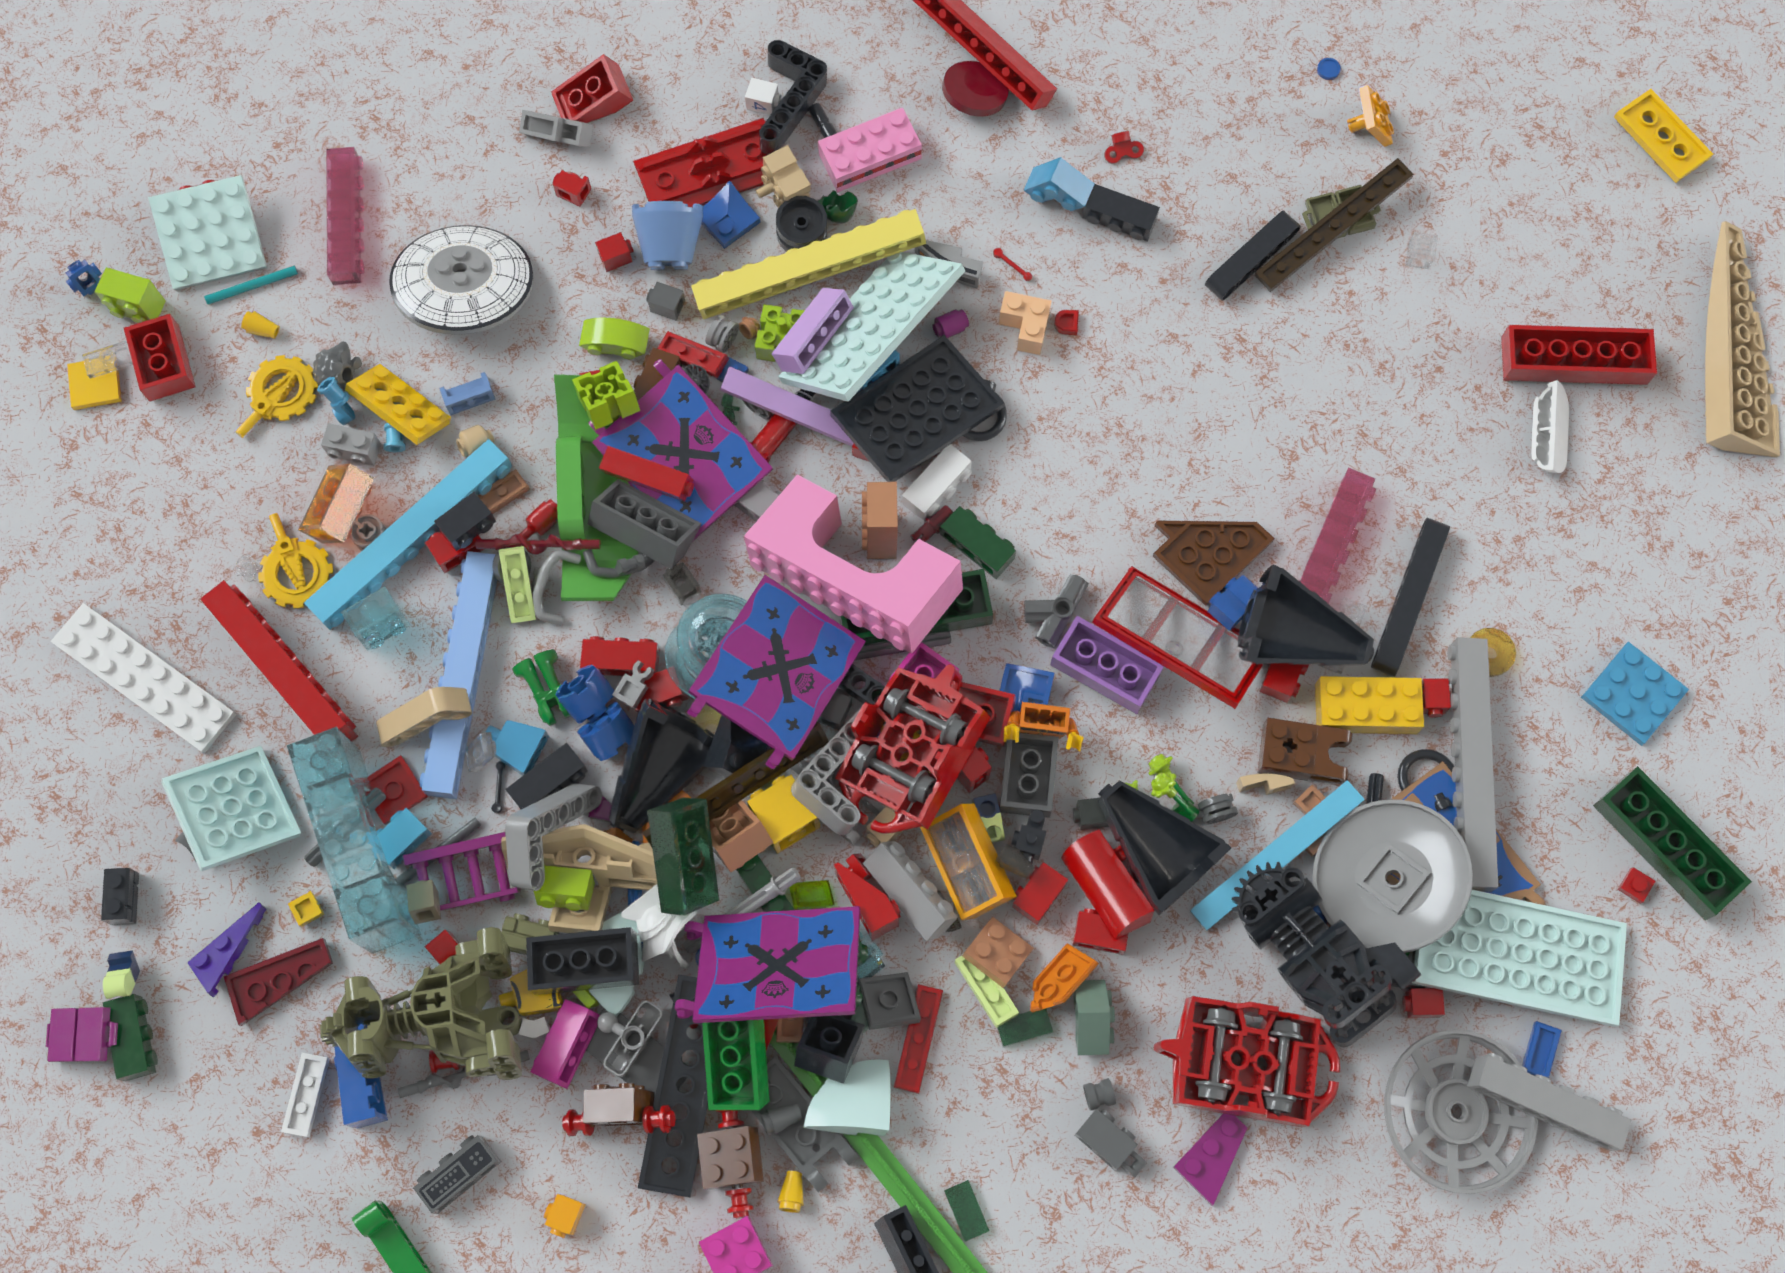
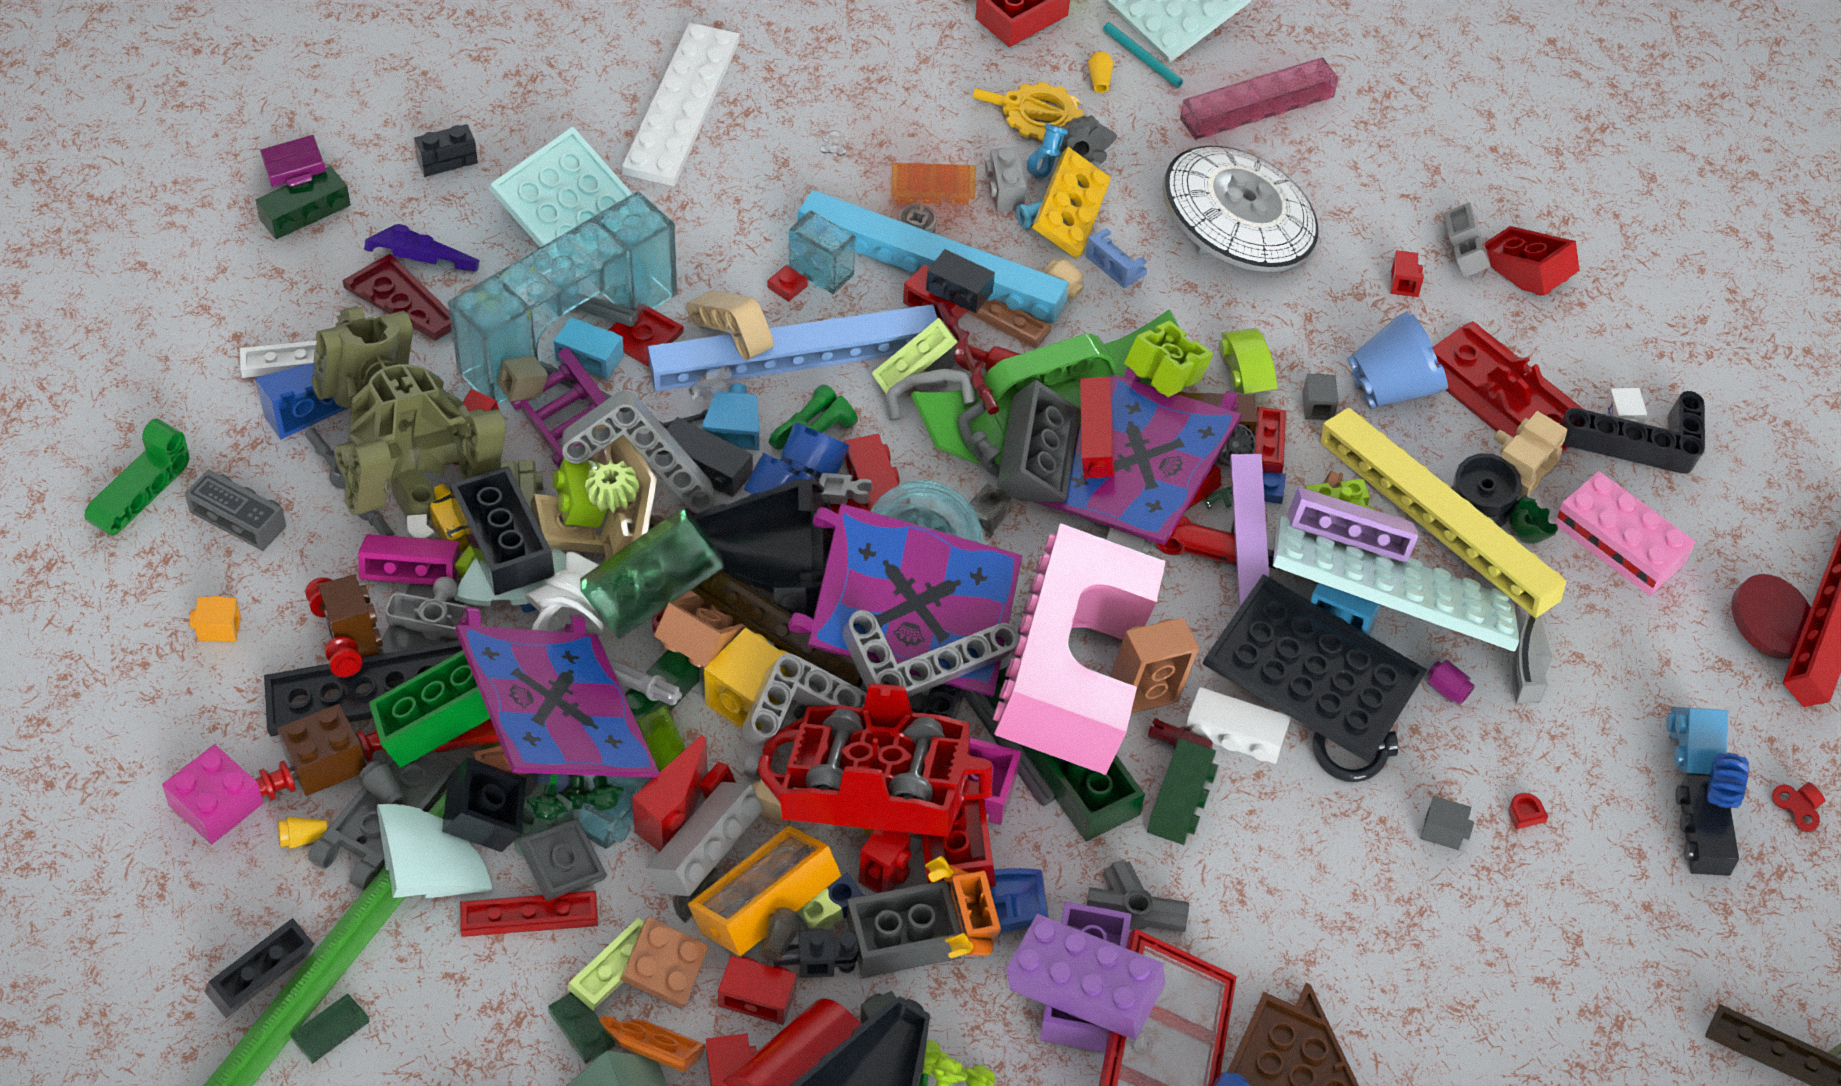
camera: 65 degrees right, 20 degrees down
(121, 974) = (362, 173): leg -> none
(276, 660) = (737, 189): red brick -> none
(289, 554) = (857, 172): yellow bar -> none
(386, 657) = (787, 283): none -> red plate
(576, 869) = (612, 486): none -> yellowish green gear
(614, 251) = (1350, 331): red brick -> none
(722, 333) = (1308, 455): light grey wheel -> none
(728, 216) = (1458, 425): blue plate -> none
(821, 120) = (1636, 476): black piece -> none
(835, 678) = (927, 663): none -> light grey beam
(998, 253) = (1574, 711): red hinge -> none
(1028, 315) = (1503, 762): light nougat brick -> none
(1063, 378) = (1447, 823): none -> dark grey brick
(1109, 184) = (1728, 780): none -> blue gear
(1126, 664) = (1086, 976): none -> medium lavender brick
(1252, 255) = (1717, 984): black beam -> none

